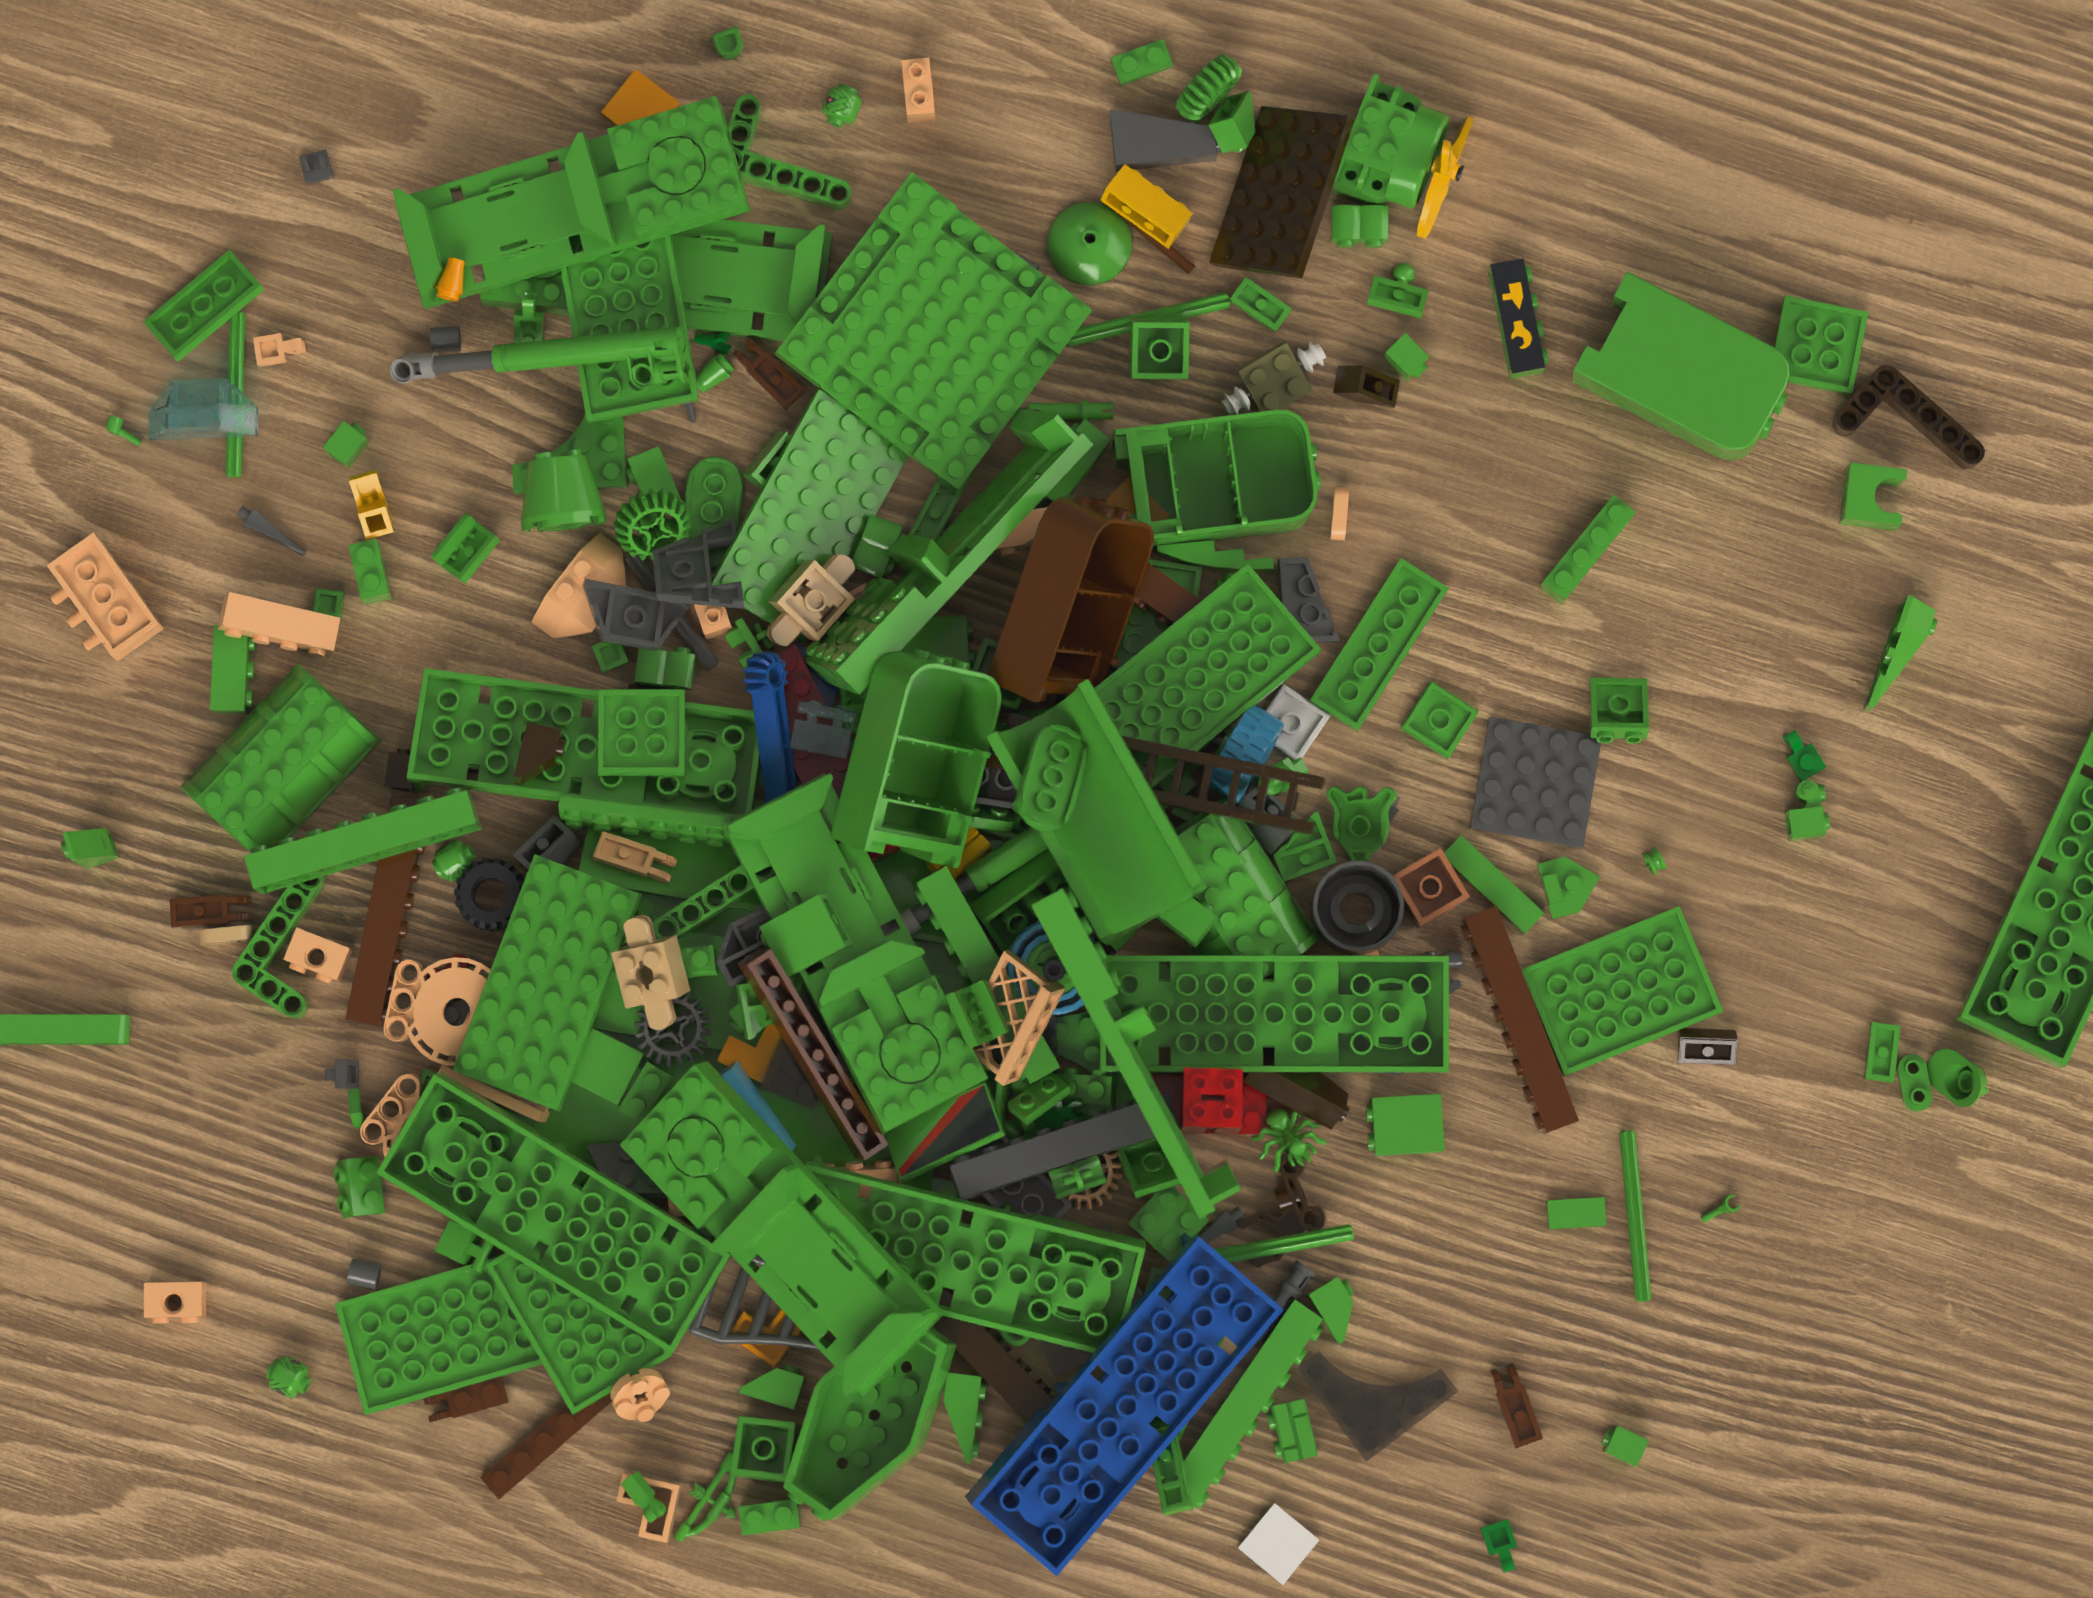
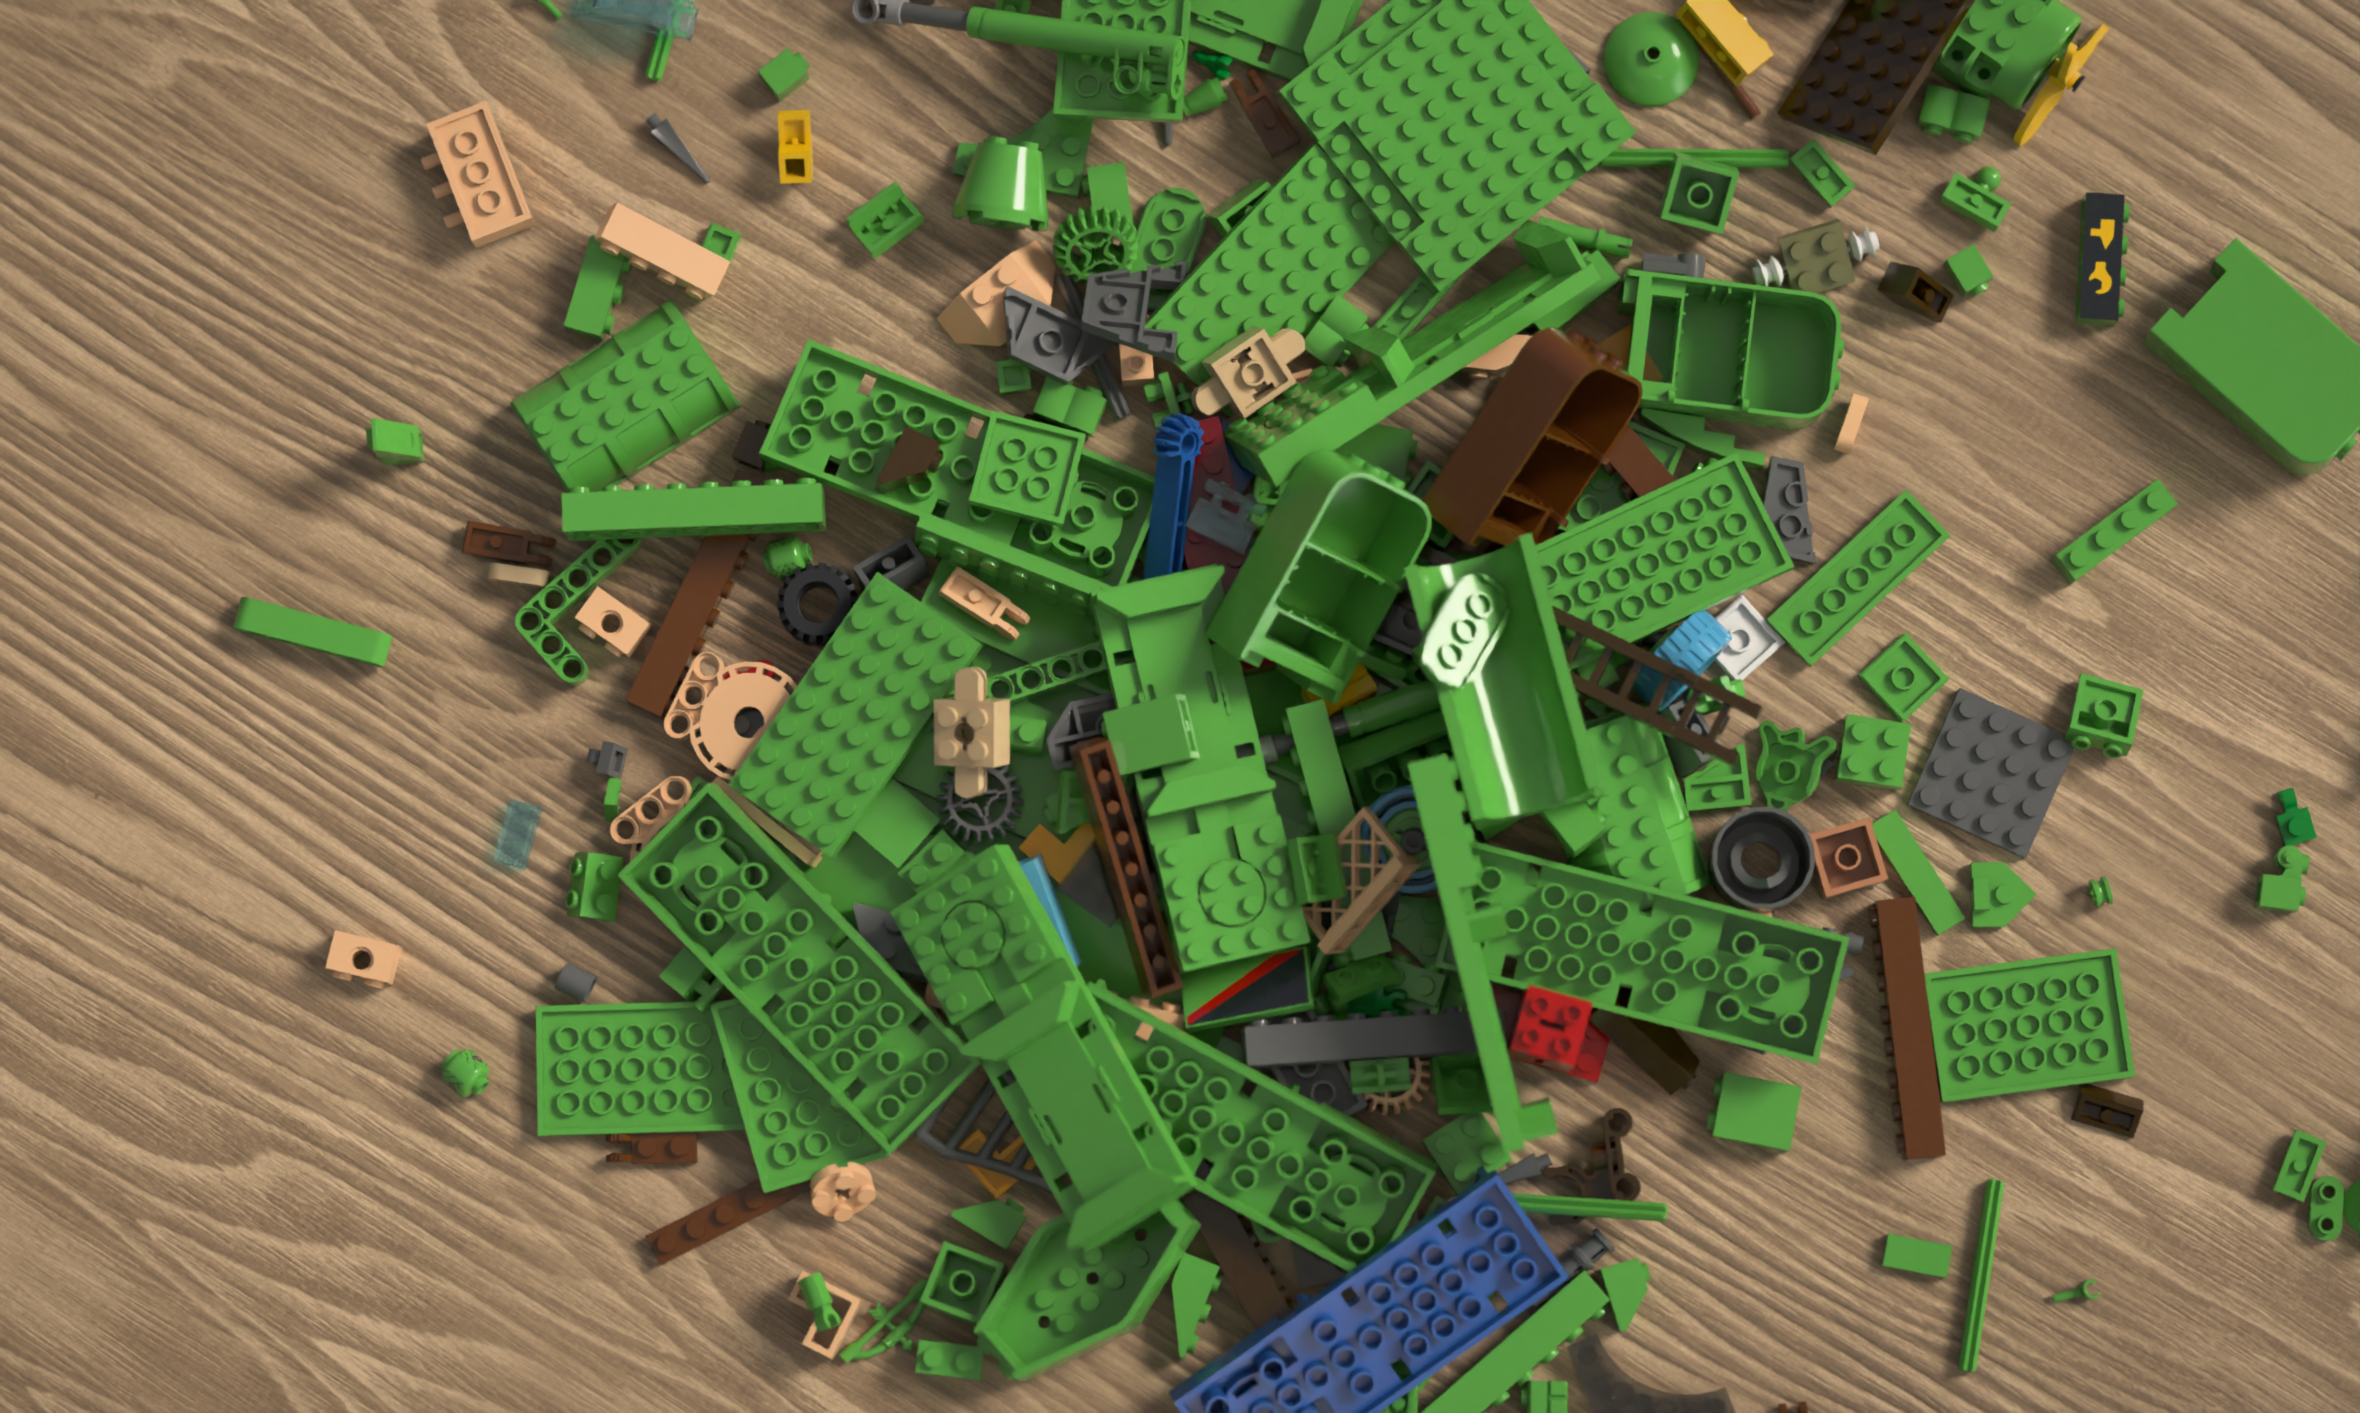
camera: 15 degrees right, 0 degrees up
(282, 1159) = (518, 834): none -> clear light blue tile
(370, 571) = (775, 220): bright green brick -> none
(1160, 414) = (1682, 264): none -> dark grey piece
(1287, 1137) = (1621, 1091): bright green animal -> none
(1429, 791) = (1872, 752): none -> bright green brick

